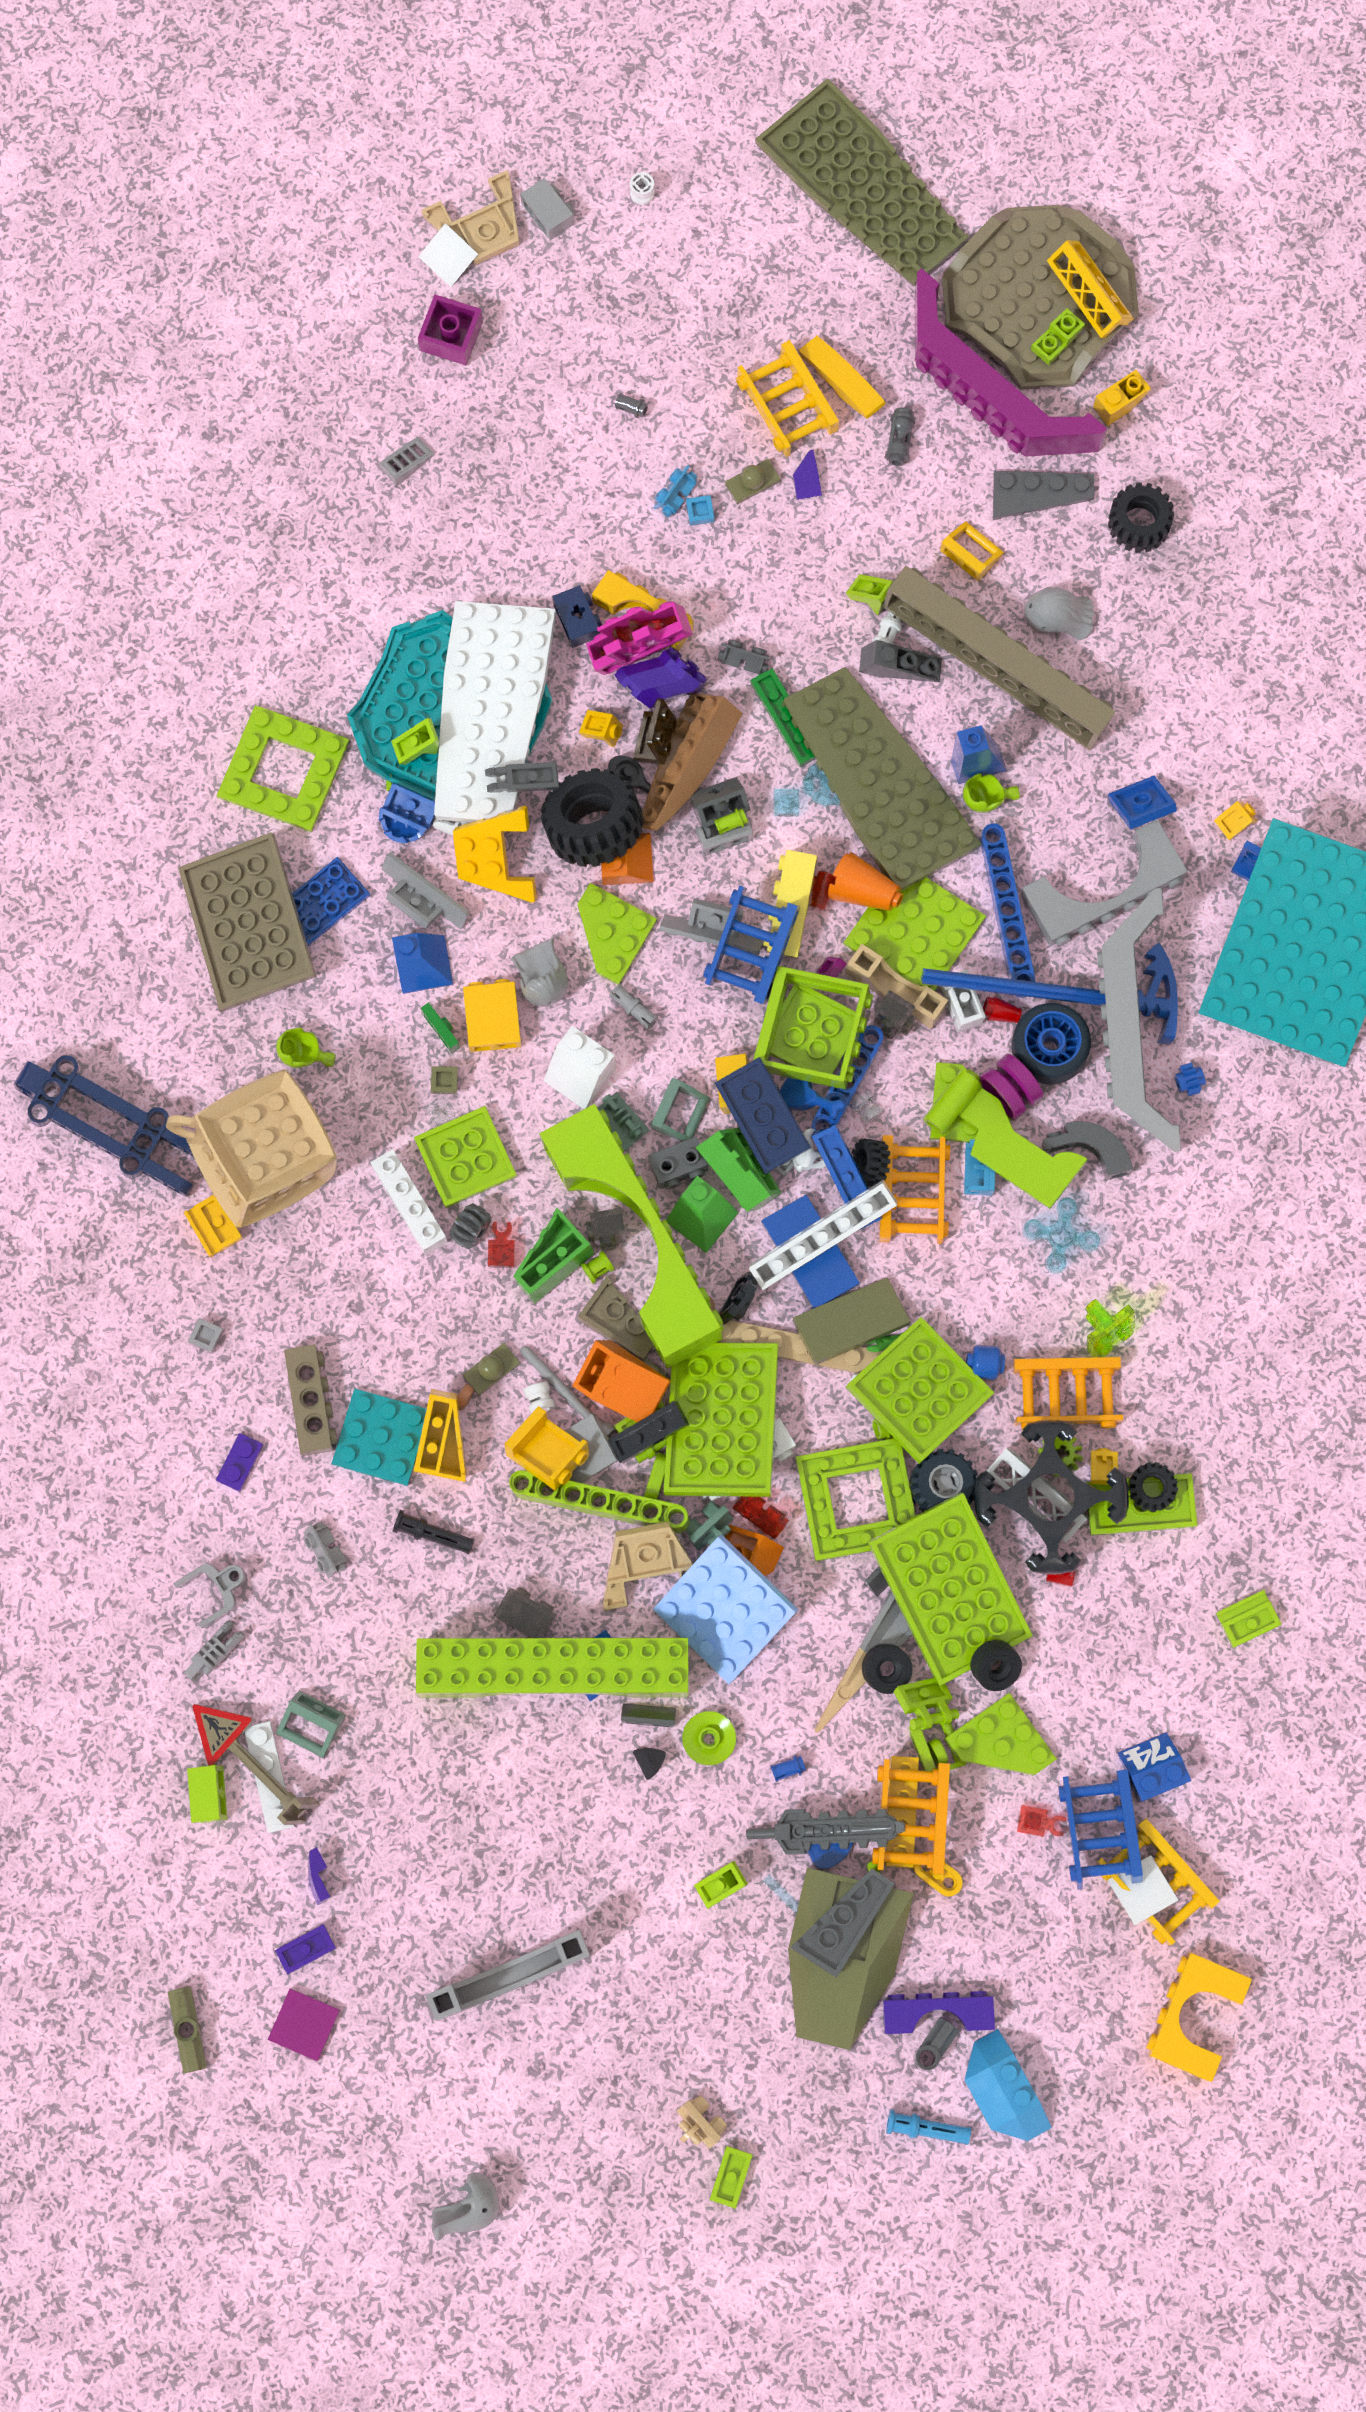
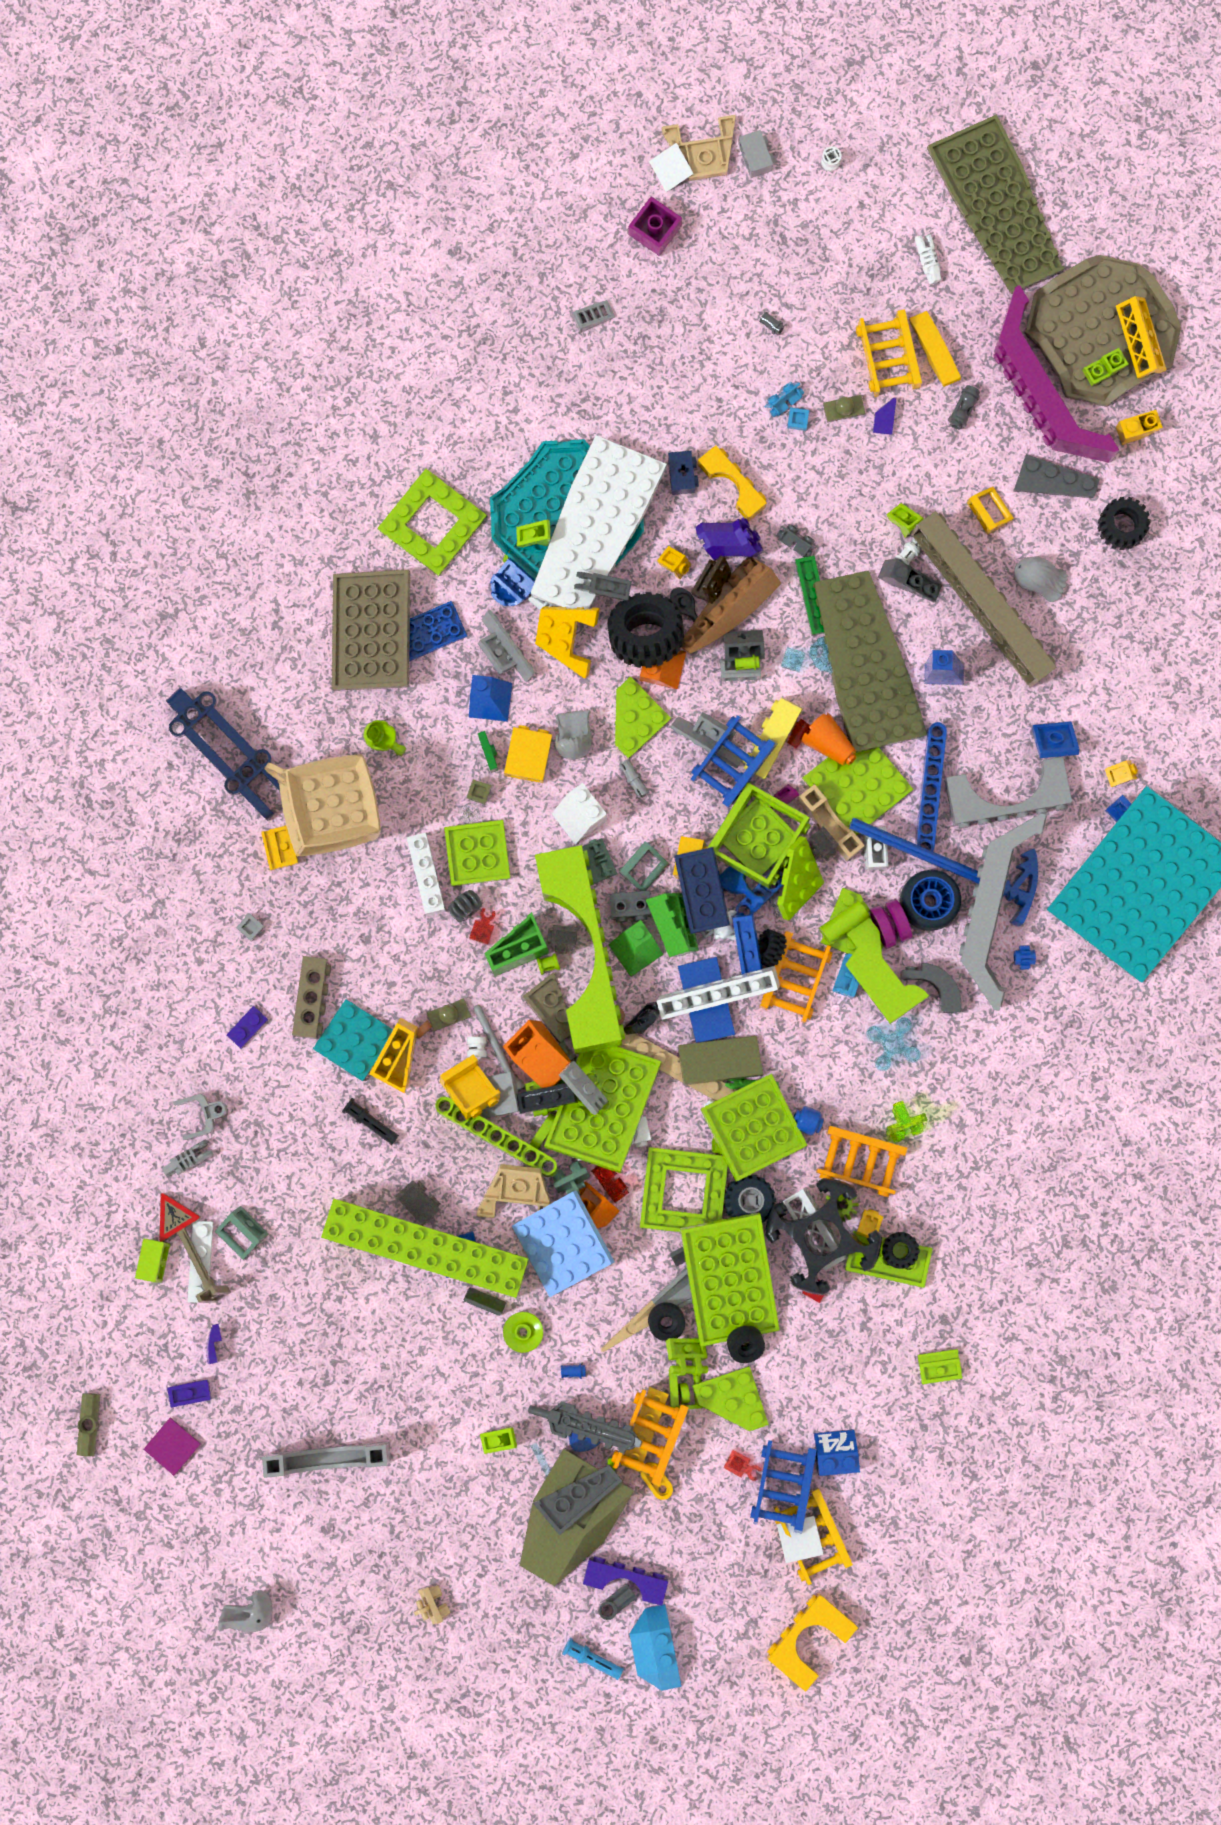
camera: 15 degrees right, 5 degrees up
(328, 1561) = (289, 1118): light grey hinge -> none
(637, 636) = (721, 502): dark pink piece -> none
(649, 1760) = (475, 1334): black tile -> none
(690, 1403) = (583, 1087): none -> light grey hinge
(731, 2177) = (441, 1650): lime plate -> none
(799, 272) = (928, 258): none -> white hinge
(880, 1065) = (799, 879): none -> lime plate
(986, 793) = (942, 698): lime hair -> none
(1000, 1010) = (901, 863): red cone -> none

